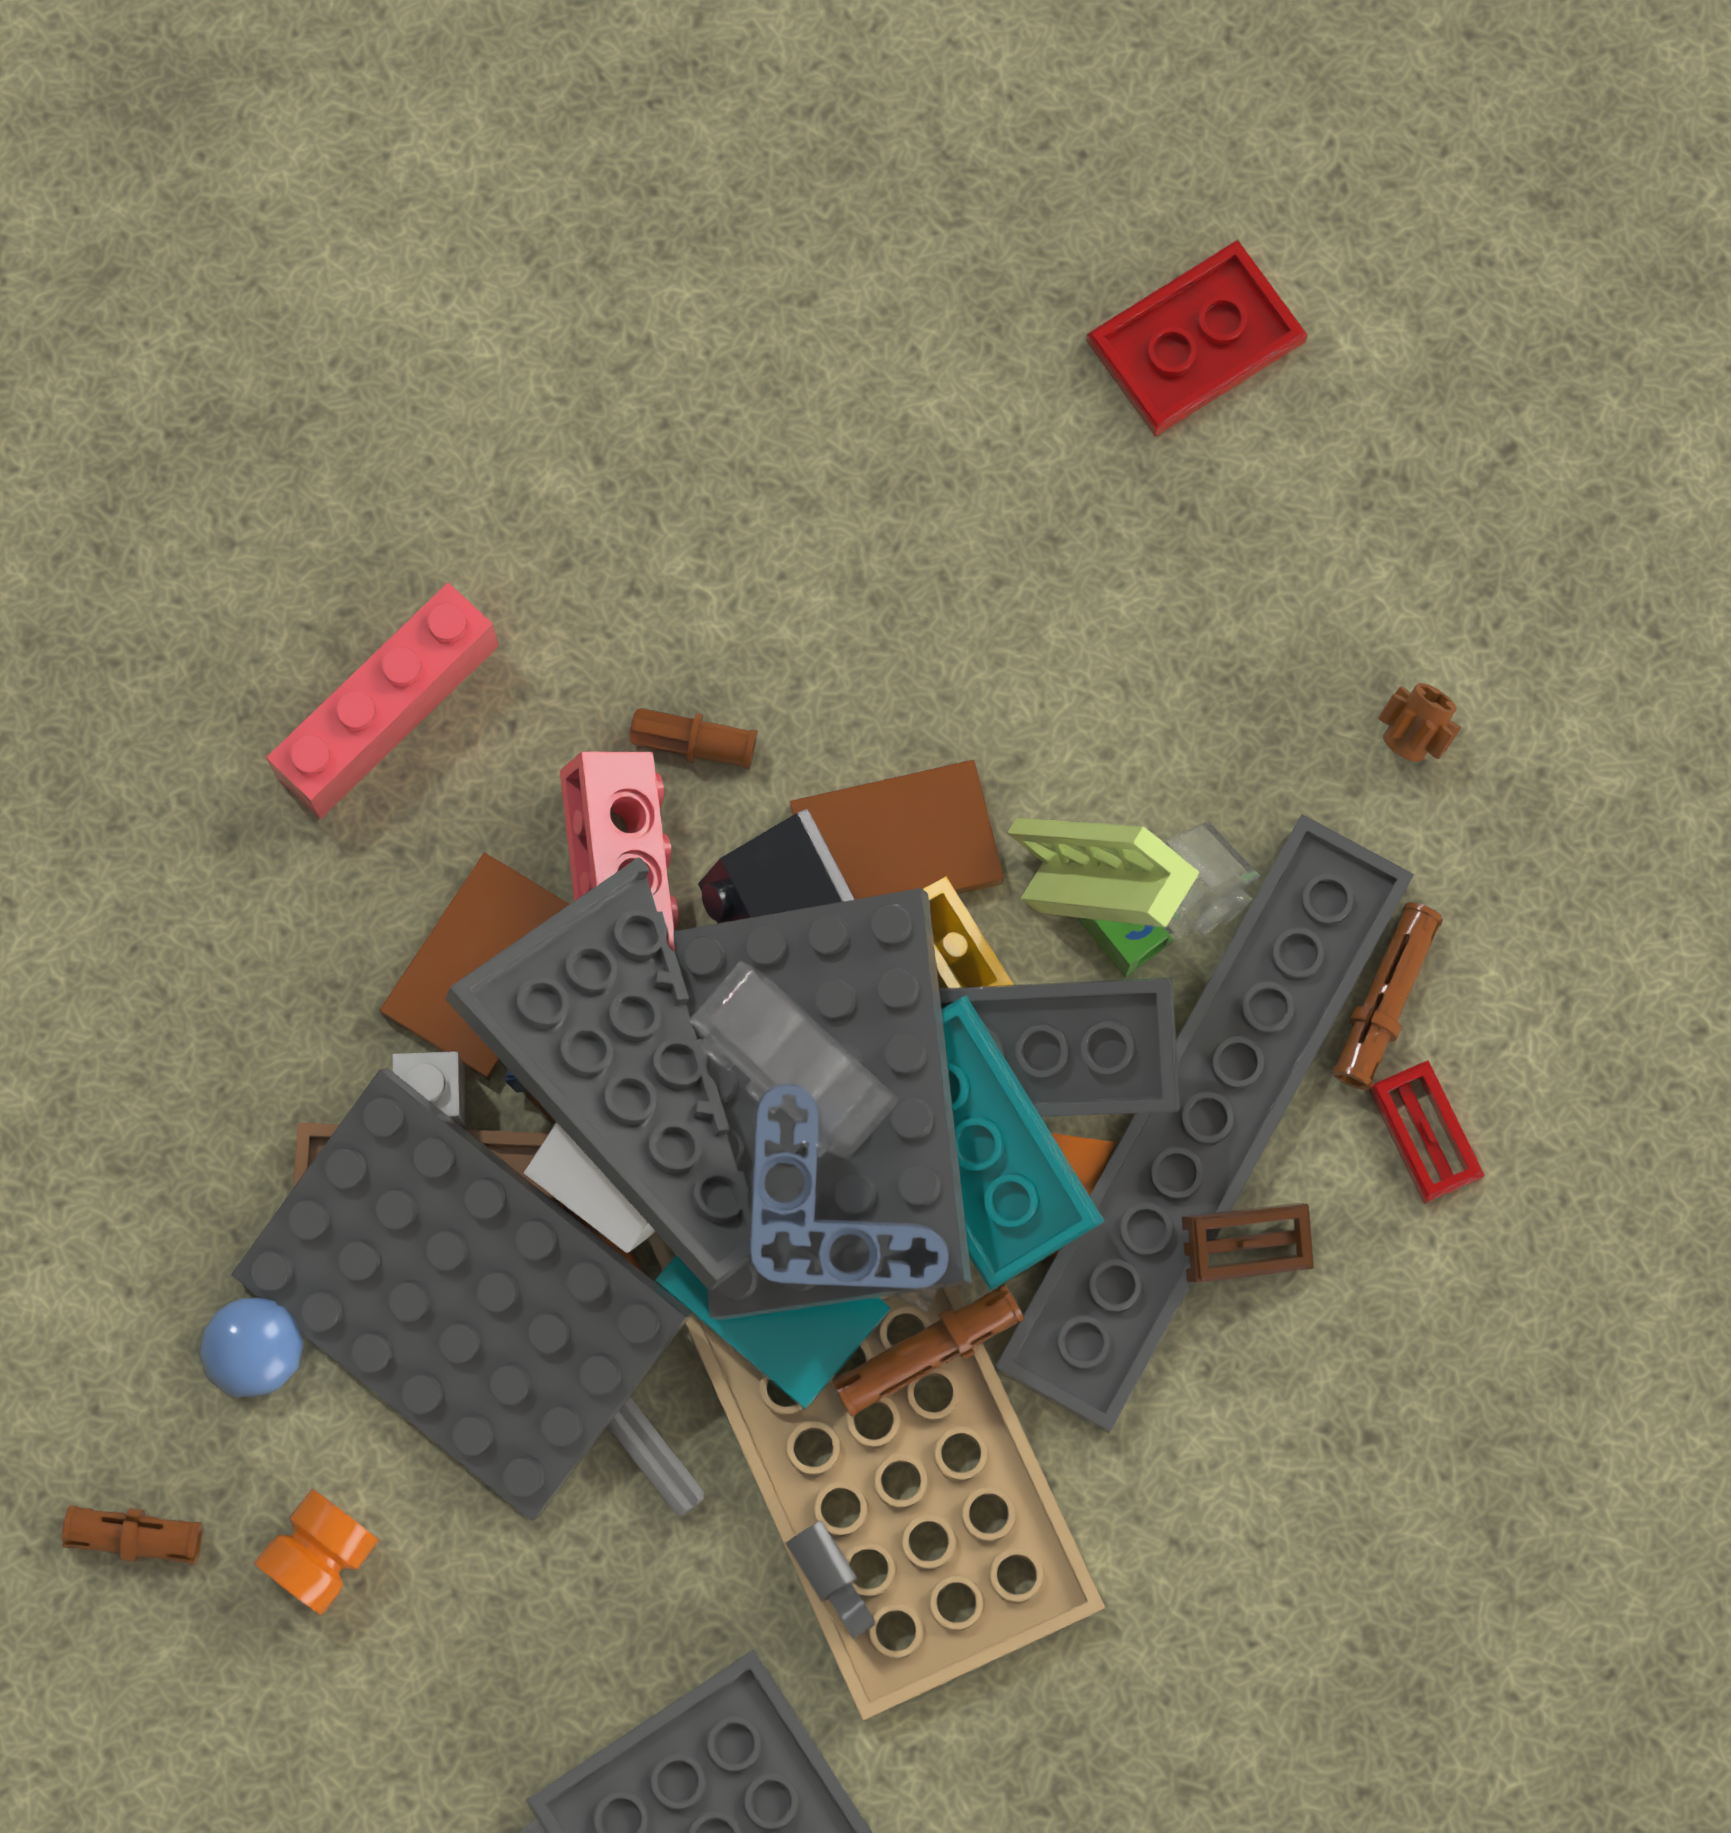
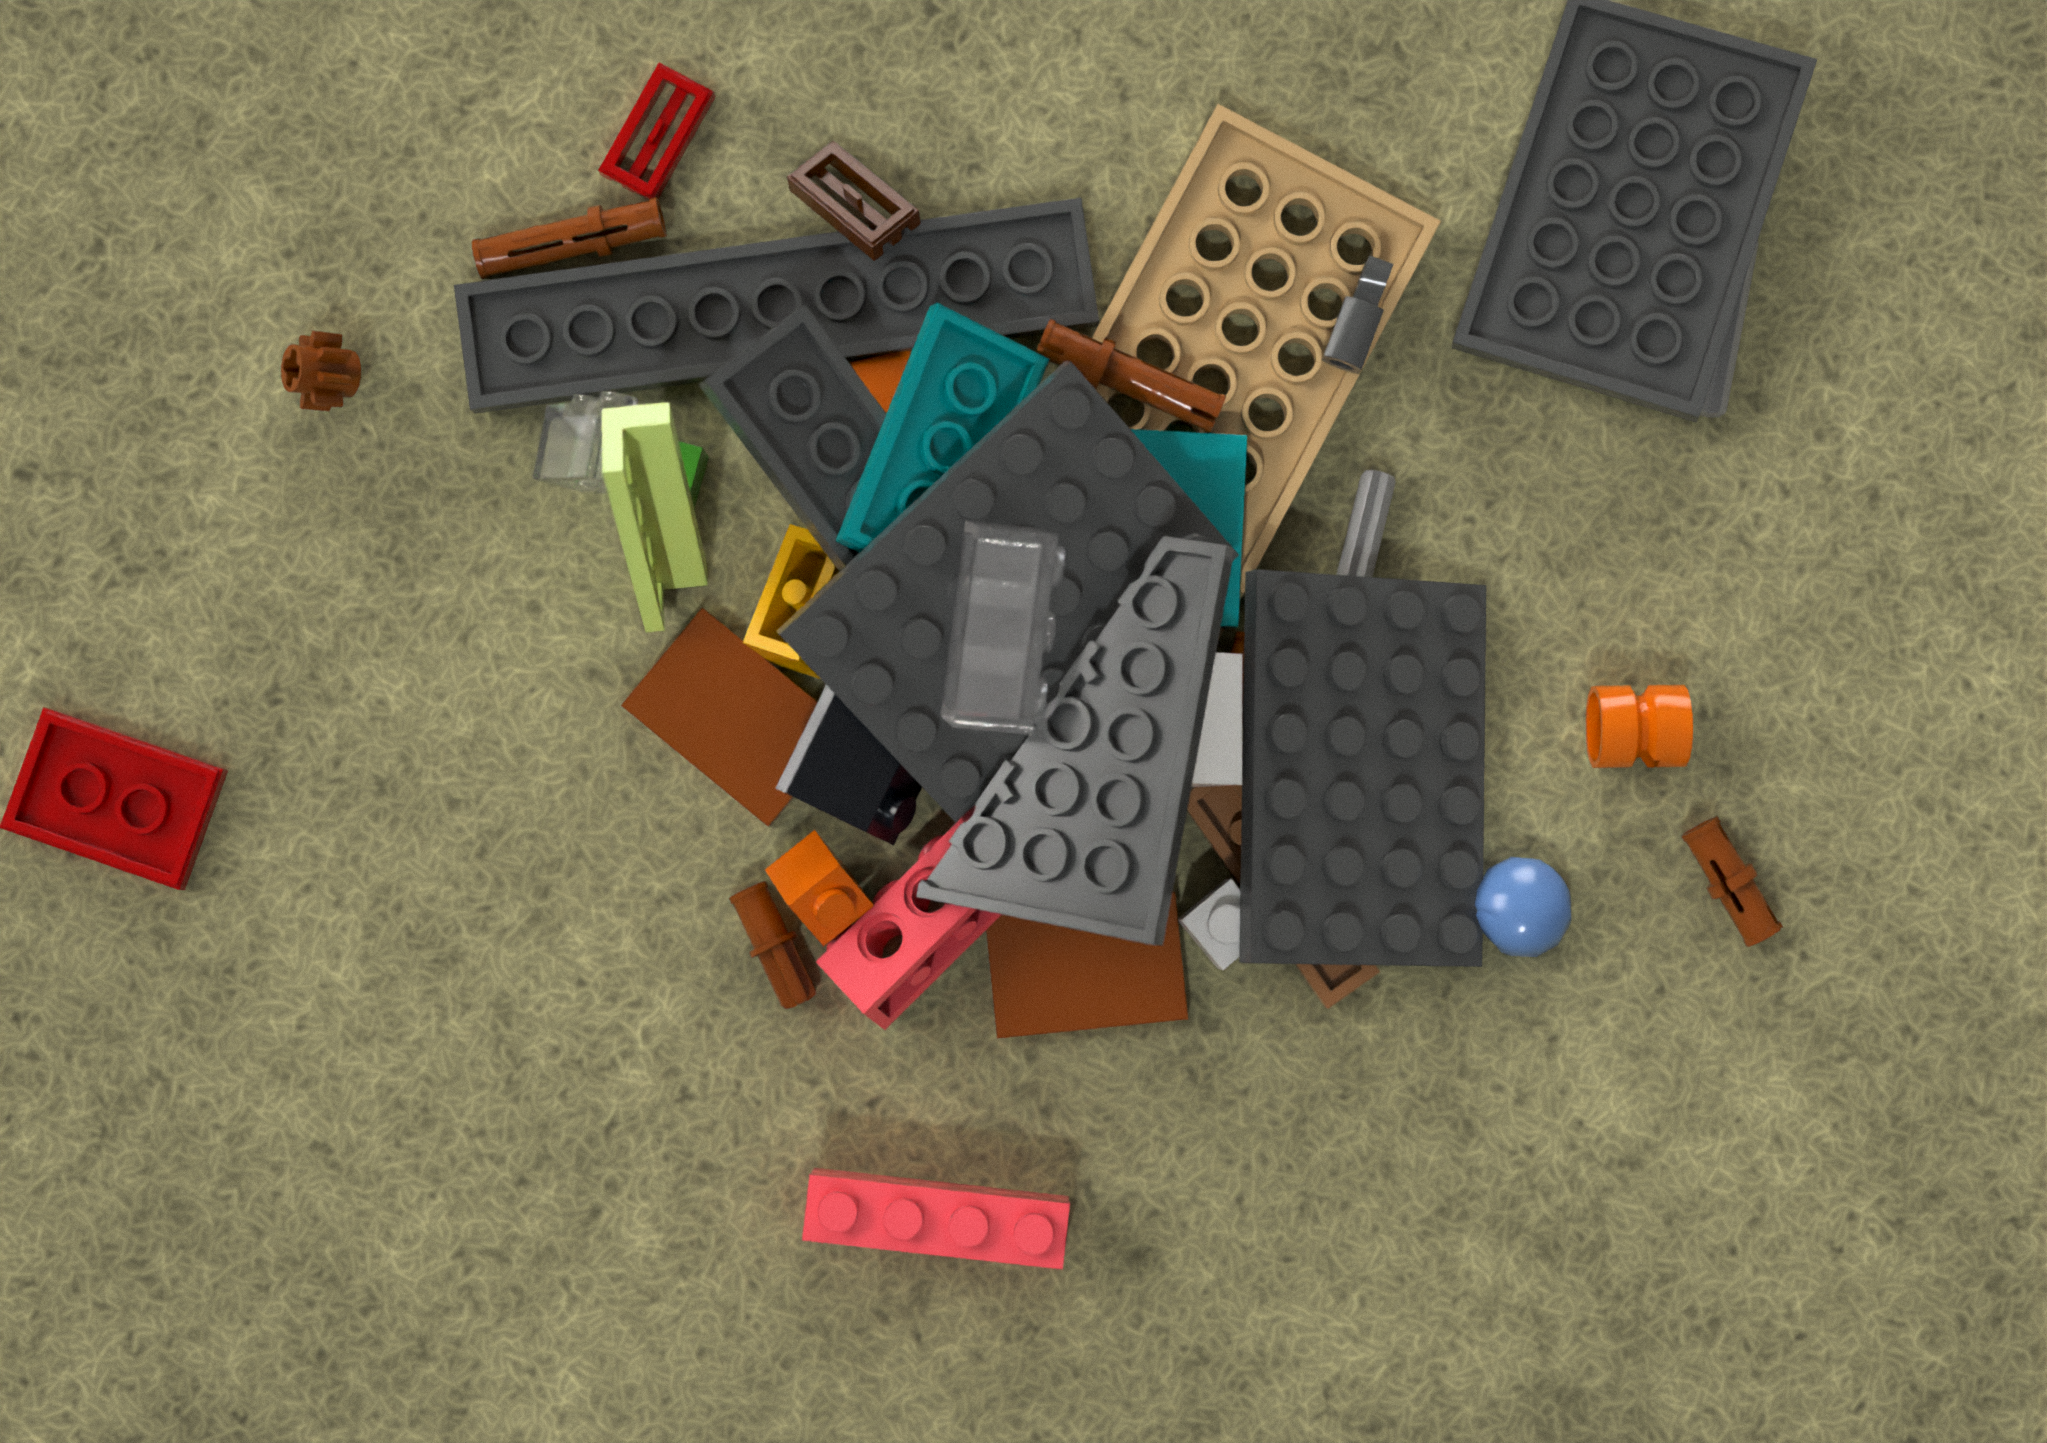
camera: 130 degrees left, 10 degrees up
(708, 798) = (819, 888): none -> orange brick
(798, 1220) = (1128, 518): sand blue beam -> none

